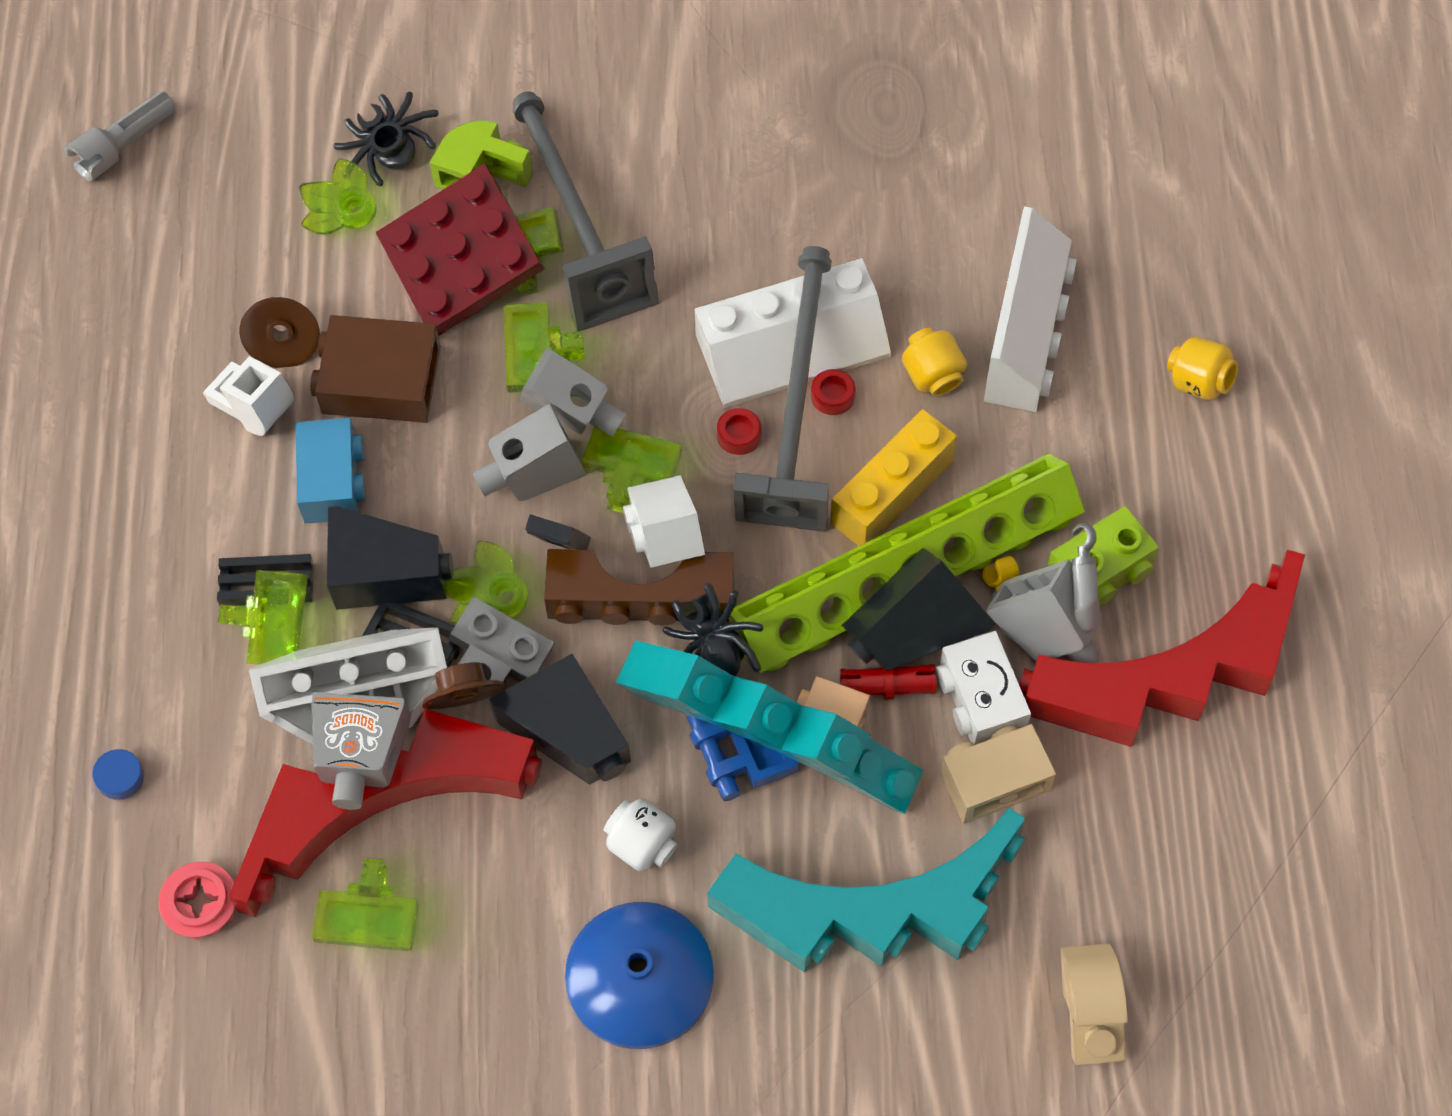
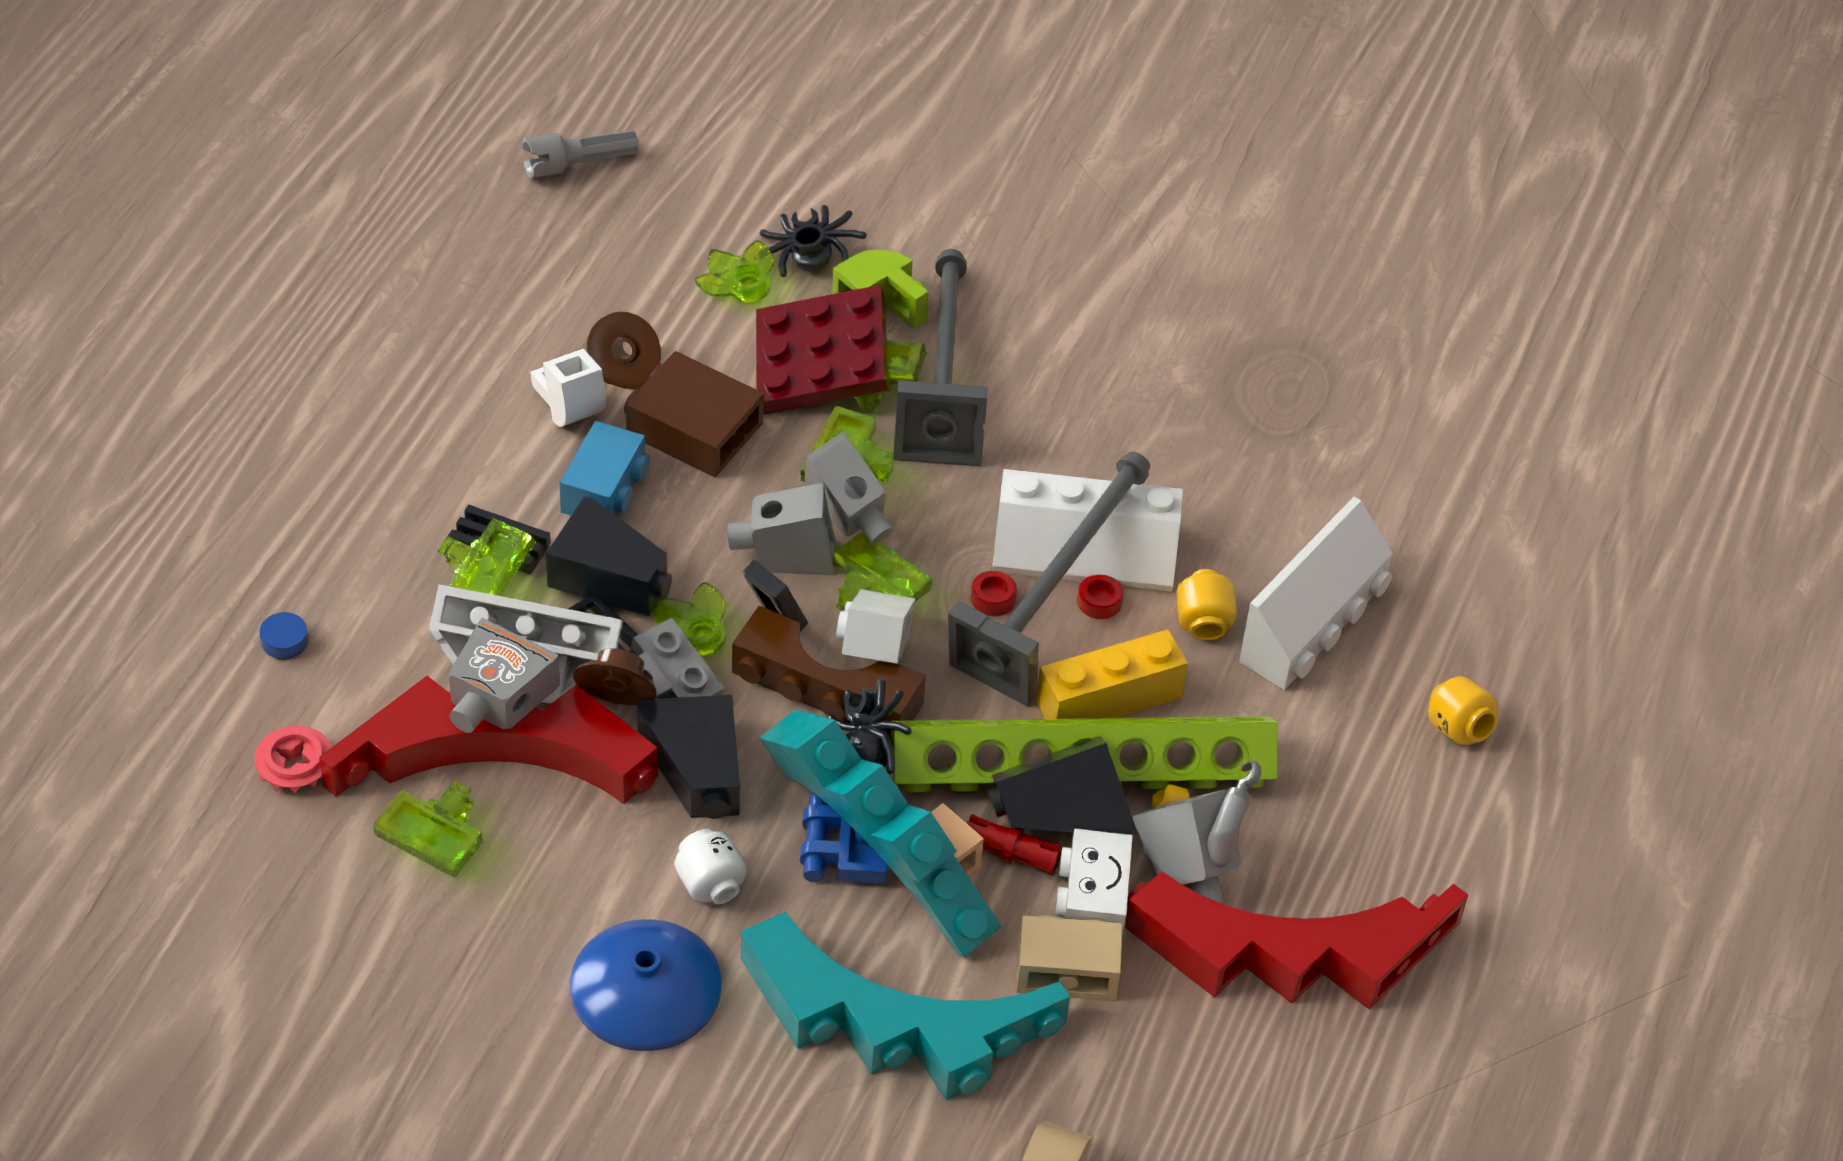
camera: 20 degrees right, 15 degrees down
(1121, 552) = (1283, 827): lime brick -> none

